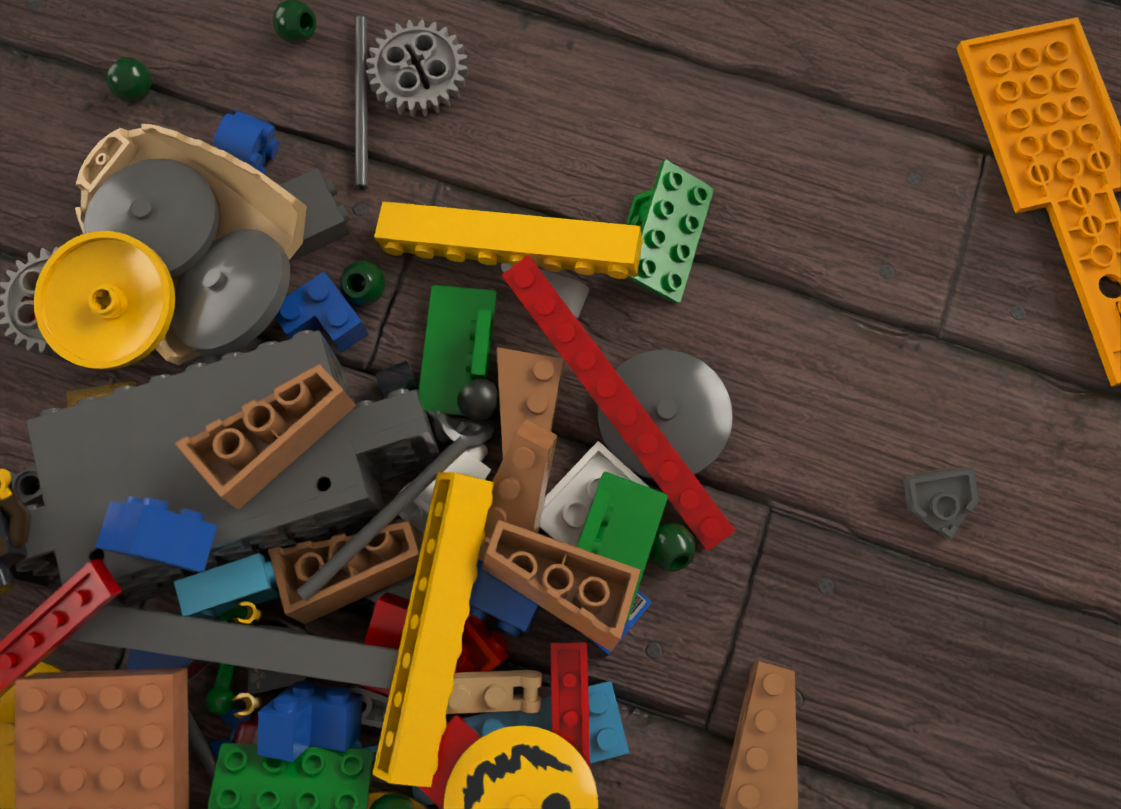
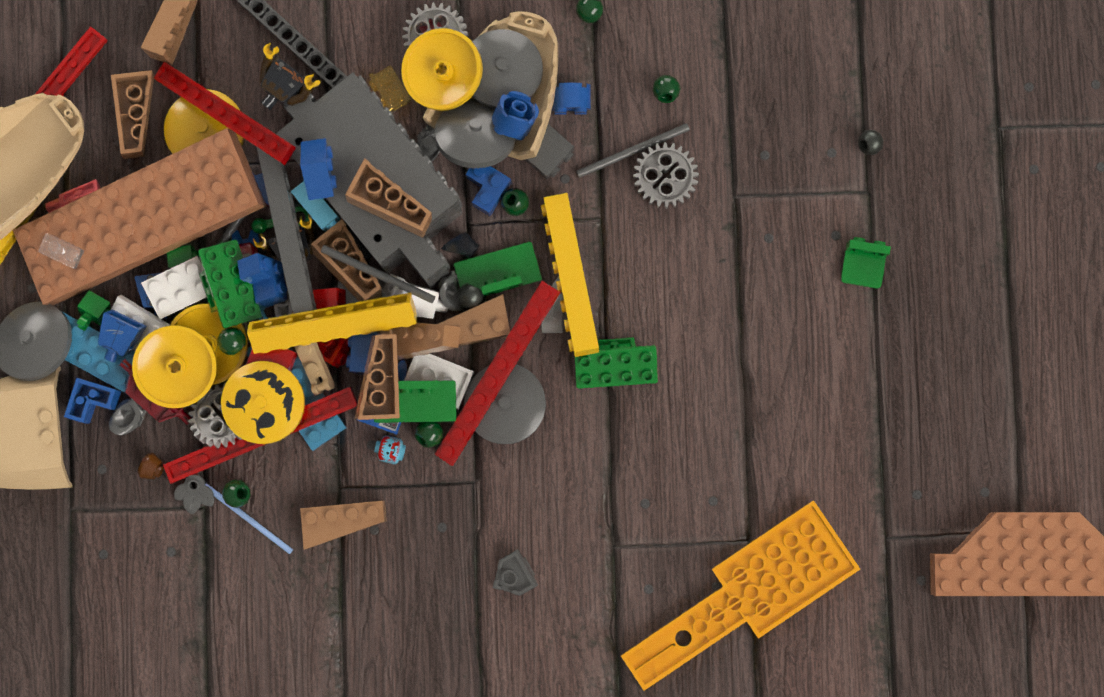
camera: 75 degrees right, 10 degrees up
(228, 216) = (514, 115): none -> blue brick
(674, 620) = (390, 449): none -> medium azure head

